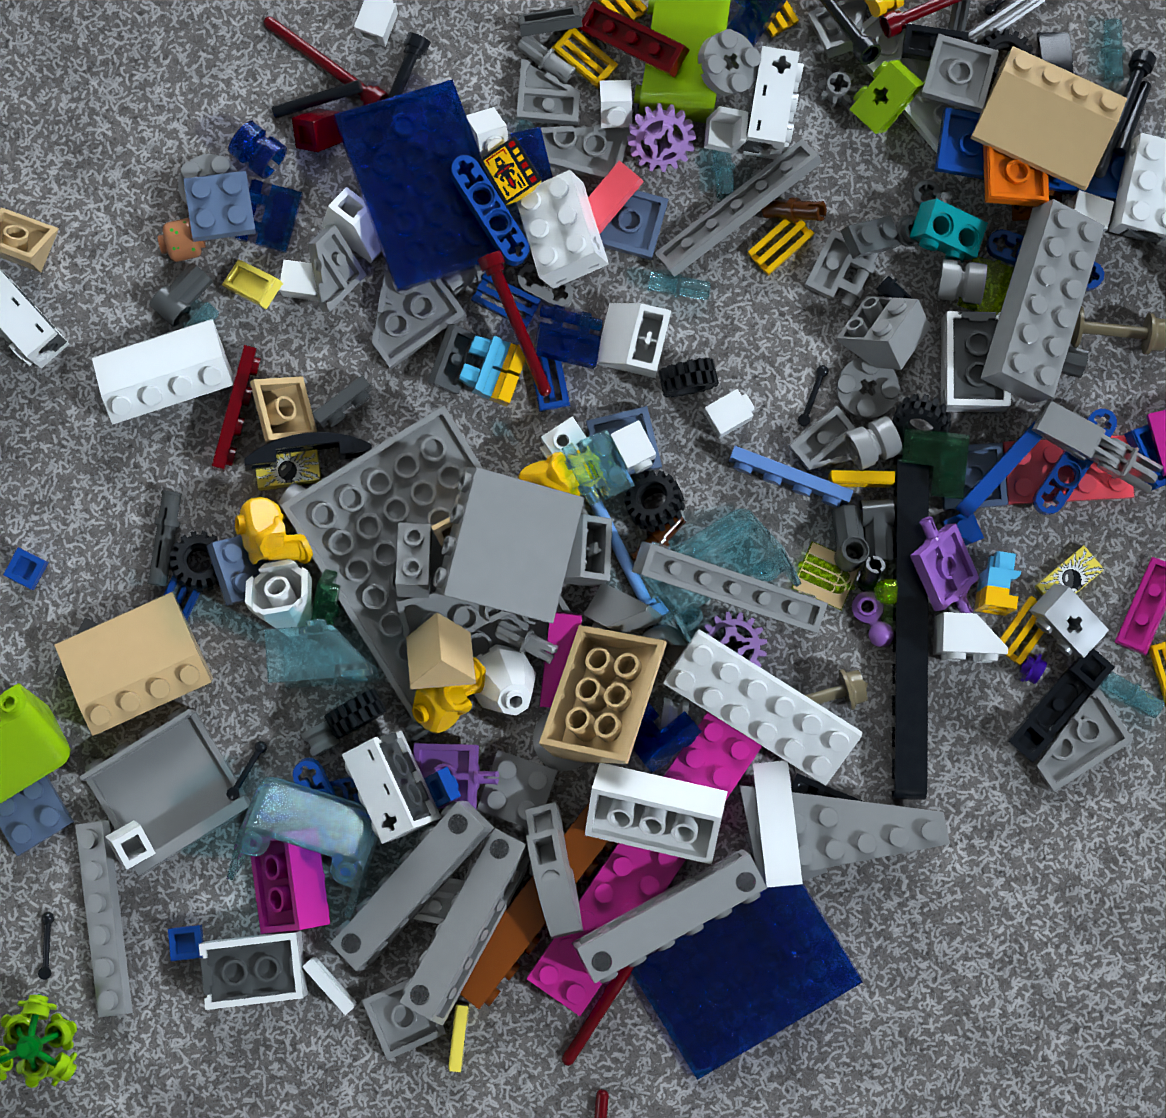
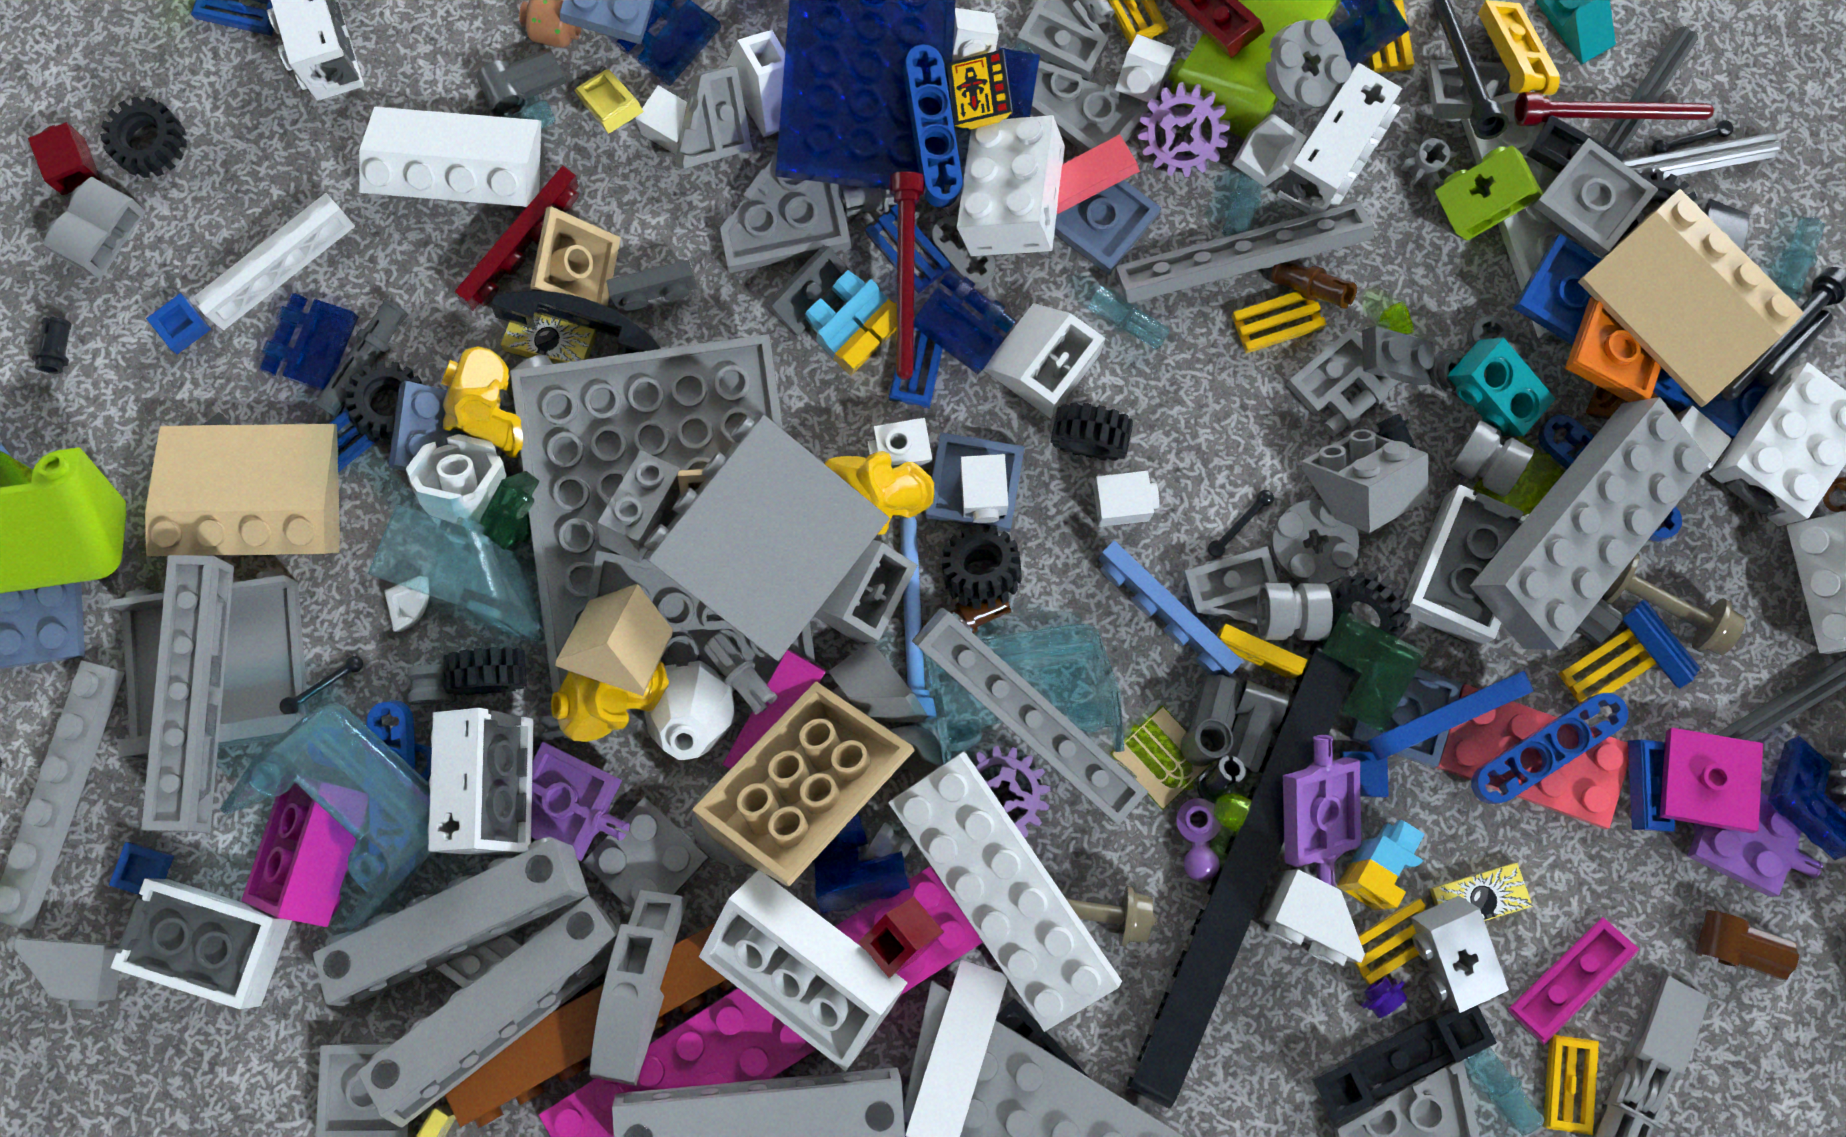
camera: 25 degrees right, 5 degrees down
(69, 496) = (273, 262): none -> white fence
(130, 844) = (124, 713): white brick -> none
(131, 540) = (318, 346): none -> clear blue plate
(171, 813) = (188, 695): none -> light grey piece
(174, 1024) = (72, 969): none -> light grey slope
(277, 694) = (405, 607): none -> white tile
(330, 985) = (290, 1007): white tile -> none
(442, 787) = (547, 812): blue plate -> none
(604, 464) = (936, 492): clear light blue plate -> none
(710, 764) = (901, 936): none -> dark red brick
(862, 209) = (1398, 318): none -> clear neon green hinge
(1088, 440) = (1582, 726): light grey arm -> none
(1107, 368) = (1636, 649): none -> yellow tile
(1121, 359) = (1661, 644): none -> blue tile

